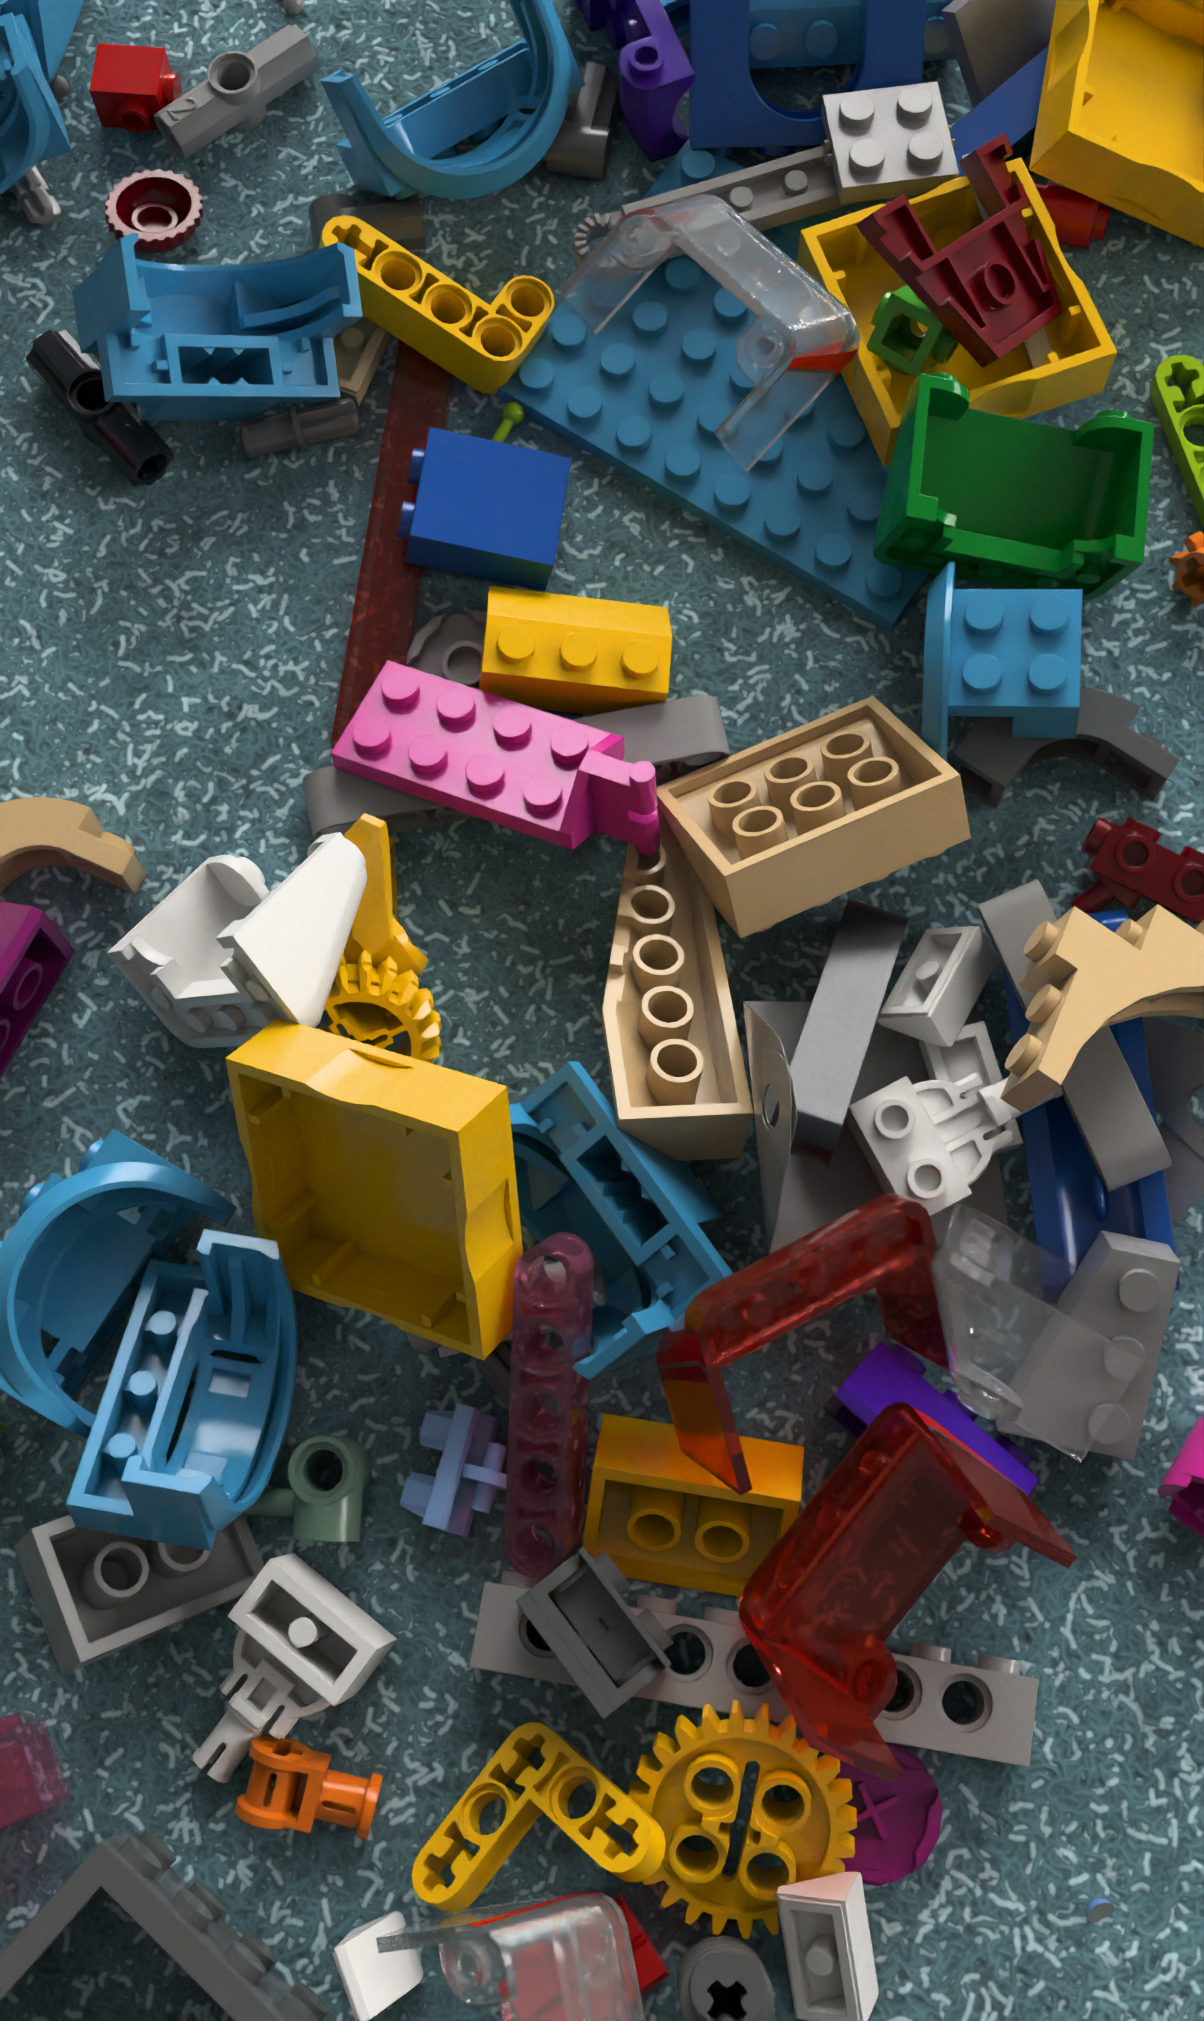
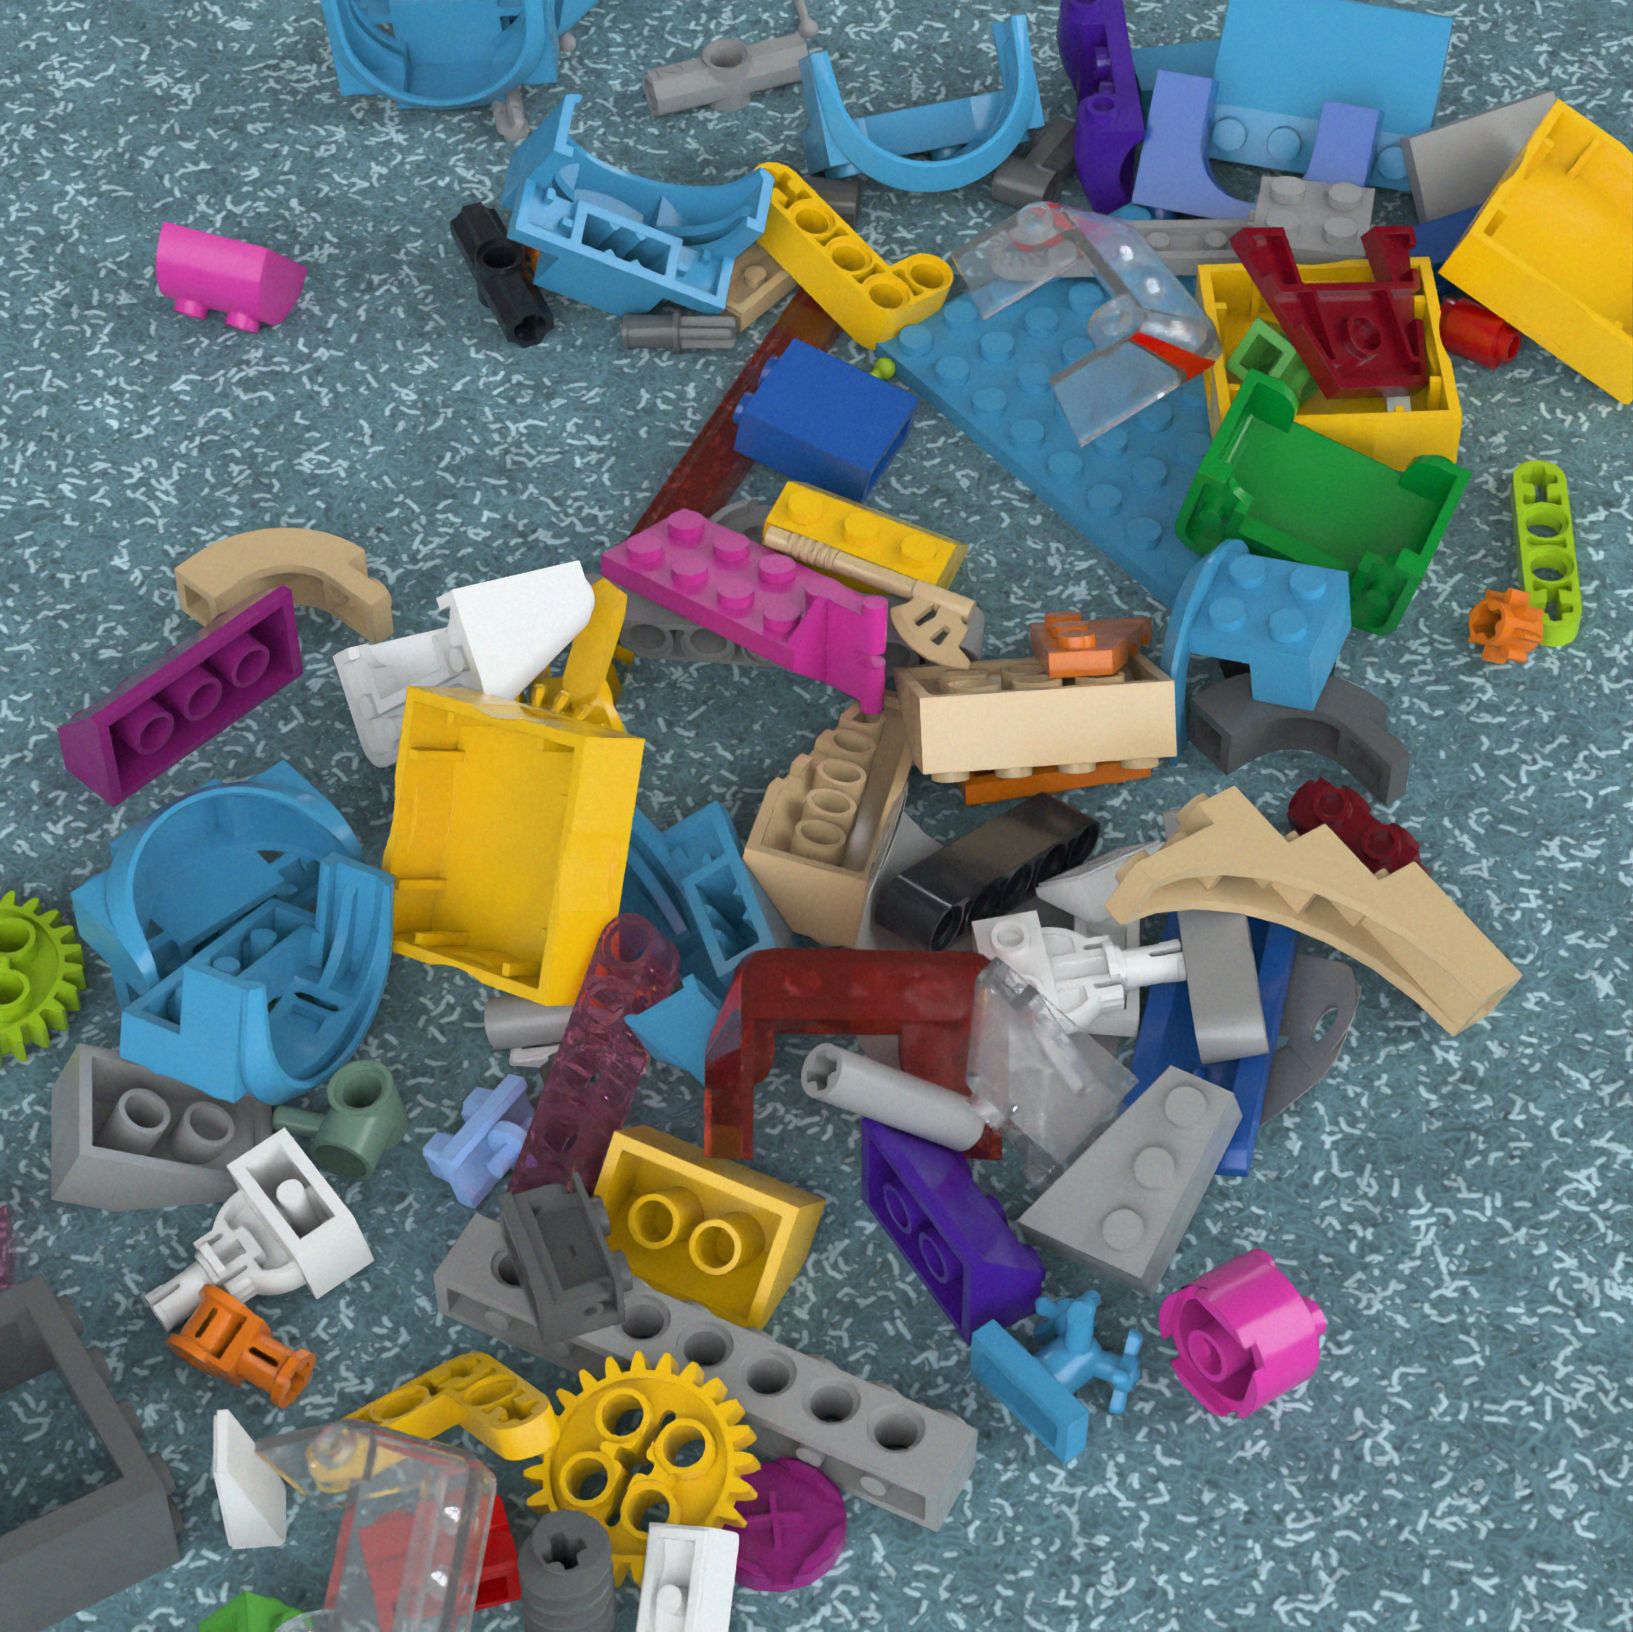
camera: 15 degrees right, 25 degrees down
(132, 85) = (631, 46): red brick -> none
(156, 206) = (618, 140): dark red hat -> none
(663, 708) = (950, 608): none -> tan piece
(831, 718) = (1087, 647): none -> orange wing
(860, 1374) = (890, 1097): none -> light grey piece
(861, 1564) = (854, 1252): clear red windscreen -> none
(1070, 1591) = (1042, 1385): none -> dark azure piece

